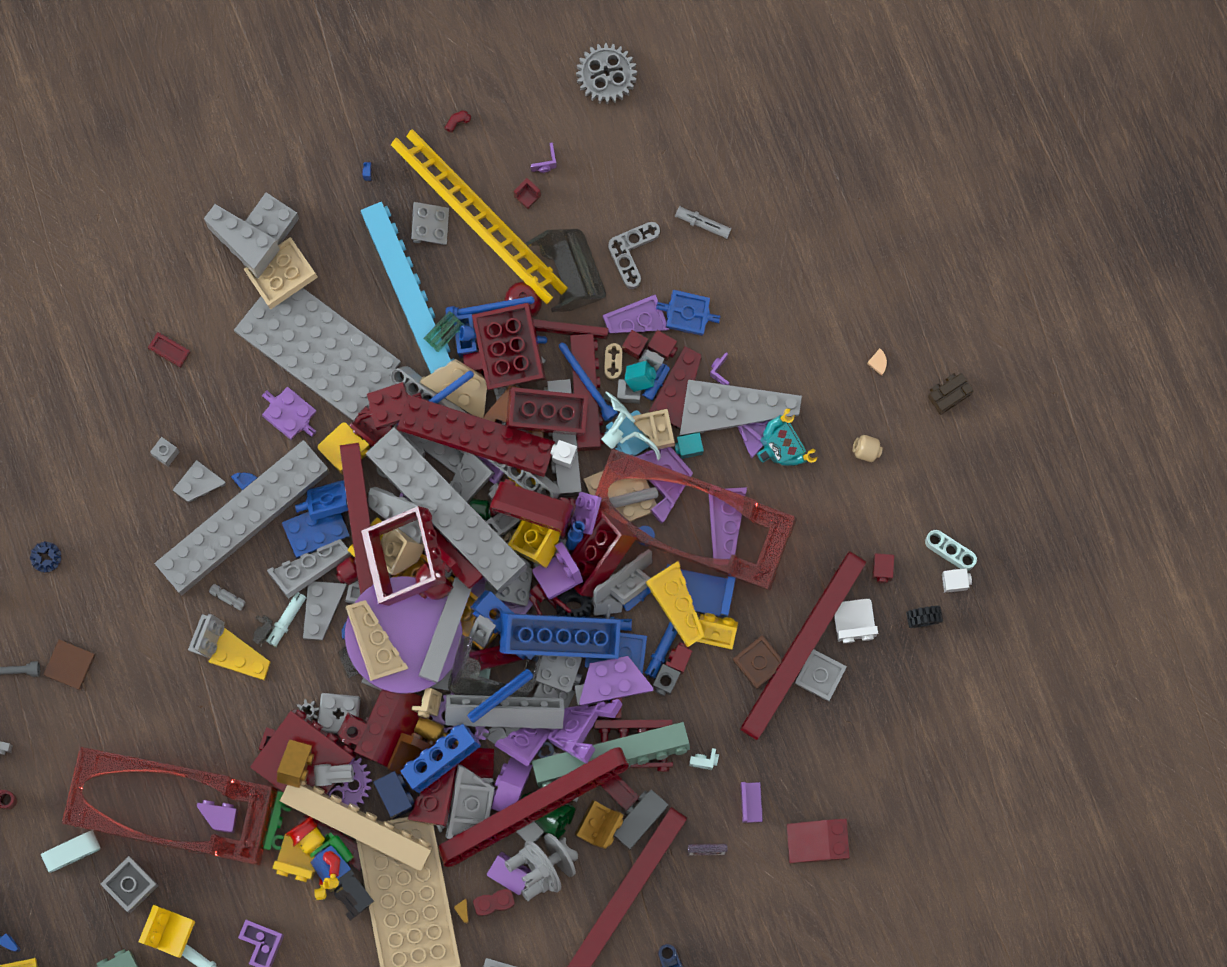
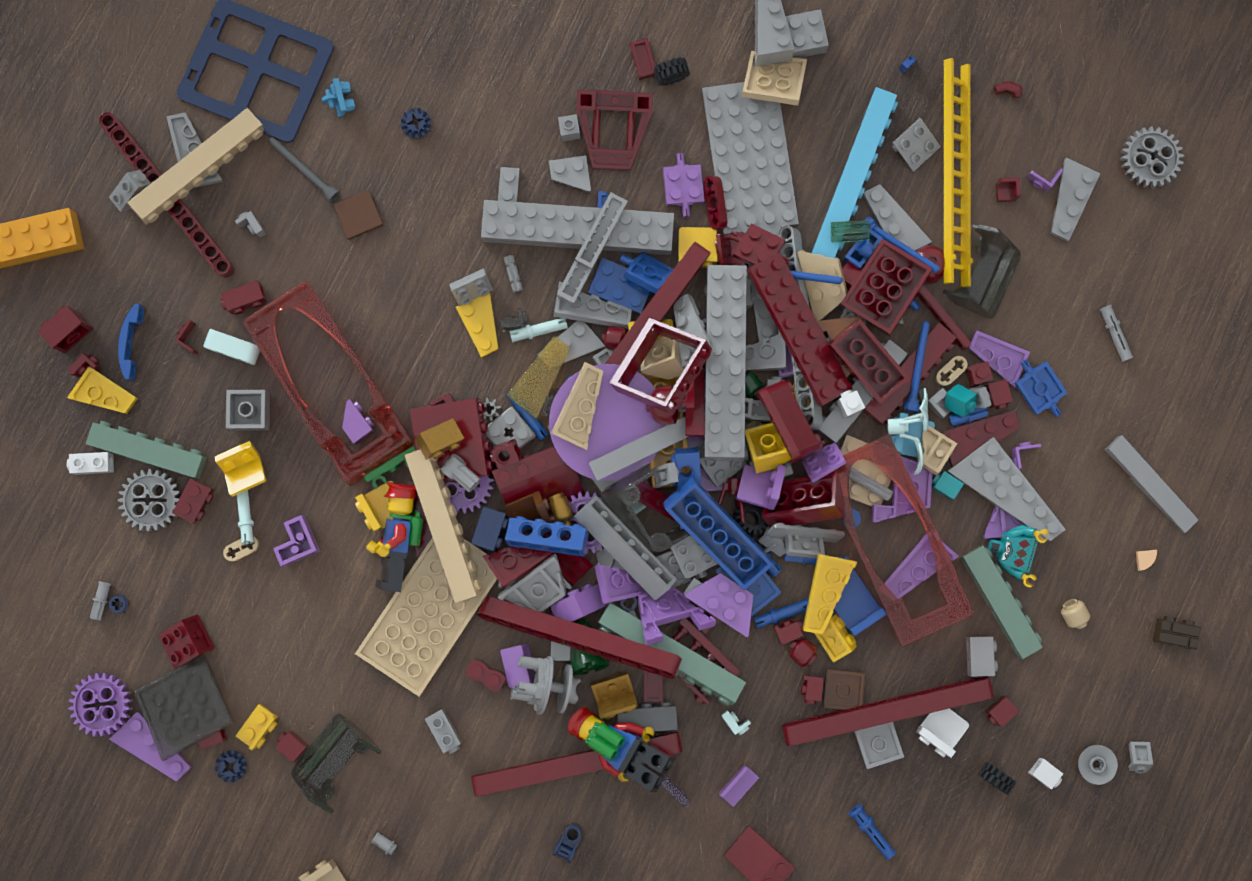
camera: 50 degrees right, 5 degrees up
(23, 877) = (183, 333): none -> dark red bracket
(43, 807) = (243, 297): none -> dark red brick
(160, 535) = (508, 184): none -> light grey plate
(180, 398) = (613, 100): none -> dark red windscreen
(200, 339) = (671, 71): none -> black tyre
(269, 522) = (591, 248): none -> light grey slope
(312, 399) = (717, 220): none -> dark red beam
(322, 655) = (537, 381): none -> clear yellow wing
(338, 688) = (534, 423): none -> blue pin
(430, 703) = (579, 489): tan bracket -> none
(462, 910) = (458, 658): pearl gold slope -> none
(466, 292) = (894, 219): none -> light grey wing
(500, 695) = (629, 534): blue axle -> none
(575, 535) = (800, 471): blue pin -> none
(576, 150) = (1074, 191): none -> light grey wing
(627, 246) = (1043, 296): light grey beam -> none
(641, 855) = (622, 749): none -> piece
(666, 671) = (772, 637): dark grey brick -> none
(704, 663) = (803, 652): none -> dark red head
(735, 682) = (812, 689): none -> dark red brick
(807, 490) = (1001, 602): none -> sand green brick
(830, 305) = (1151, 484): none -> light grey slope
(830, 542) = (981, 656): none -> light grey brick
(900, 744) = (866, 824): none -> blue pin
(946, 541) = (1059, 739): light aqua beam -> none
(986, 529) = (1107, 764): none -> light grey dish
(1009, 504) = (1140, 757): none -> light grey bracket

